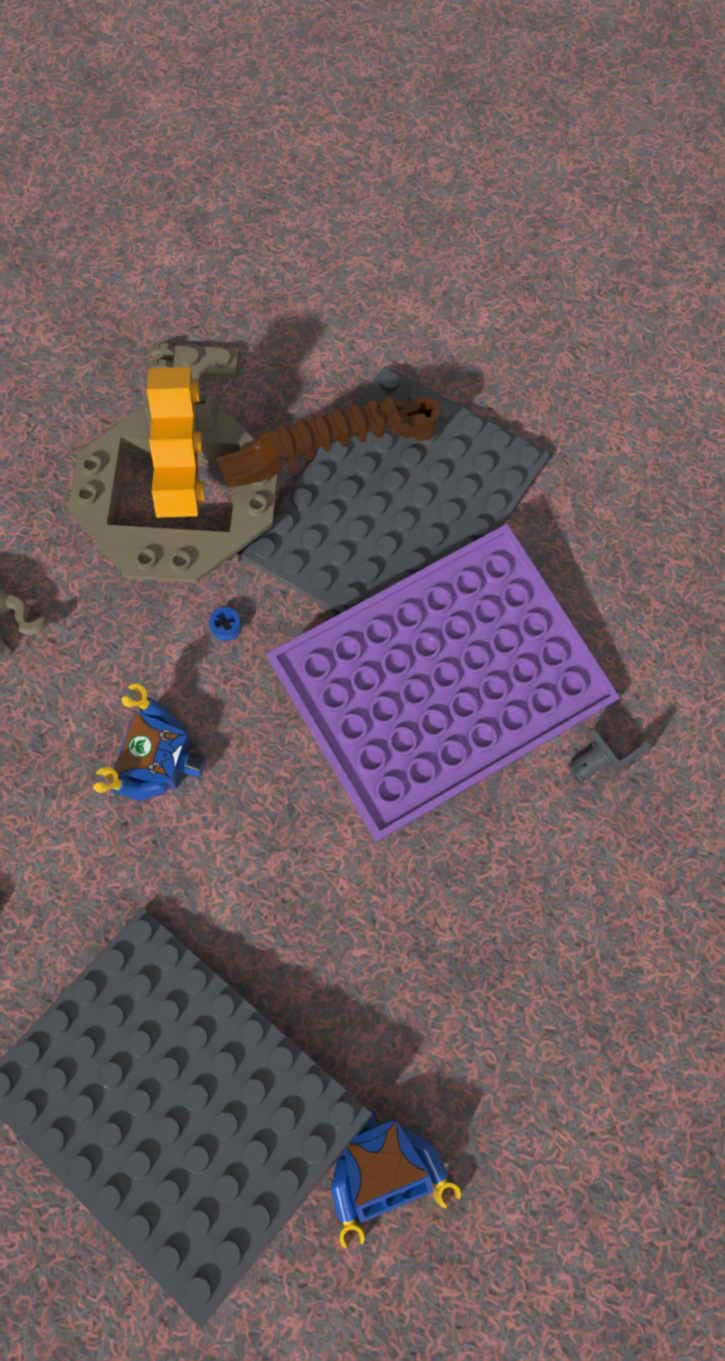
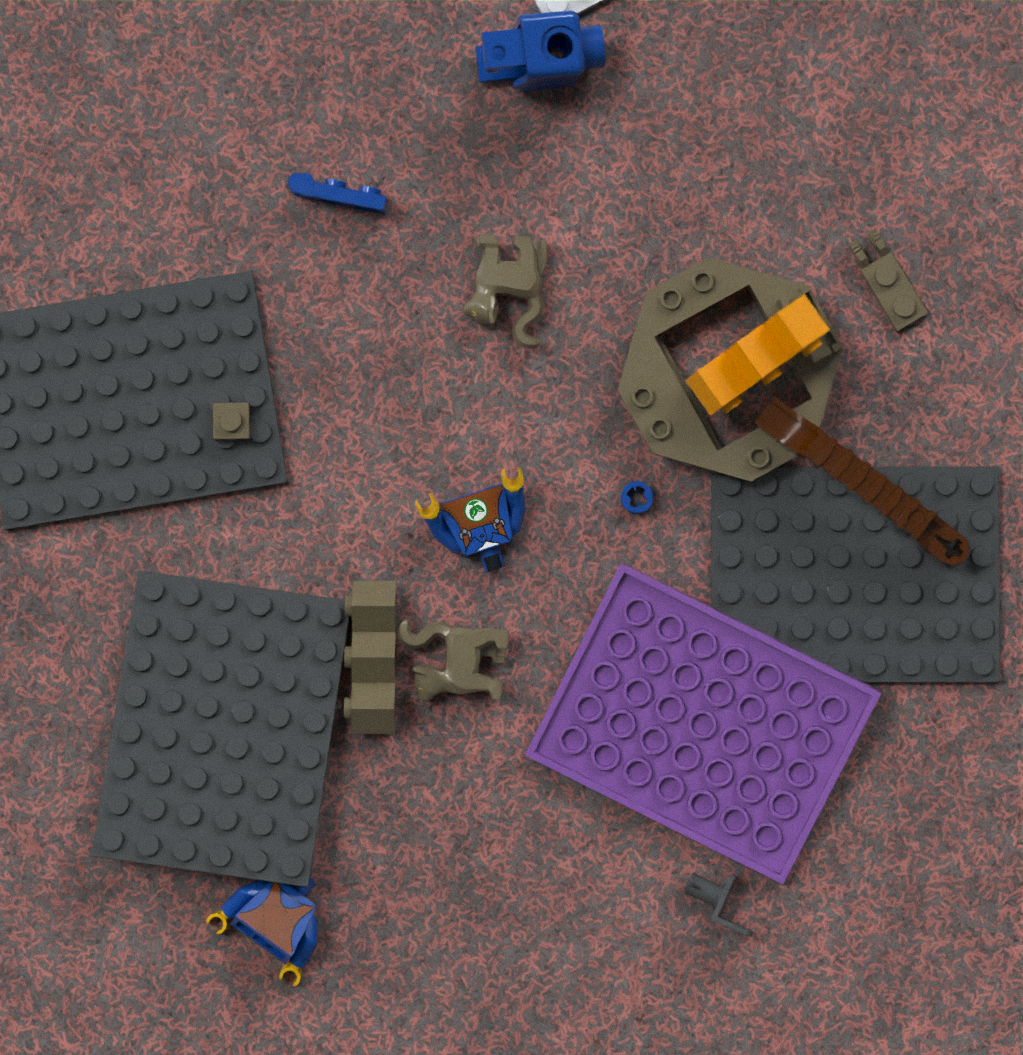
camera: 60 degrees right, 20 degrees up
(203, 918) = (372, 657): none -> dark tan brick
(259, 841) = (462, 659): none -> dark tan animal

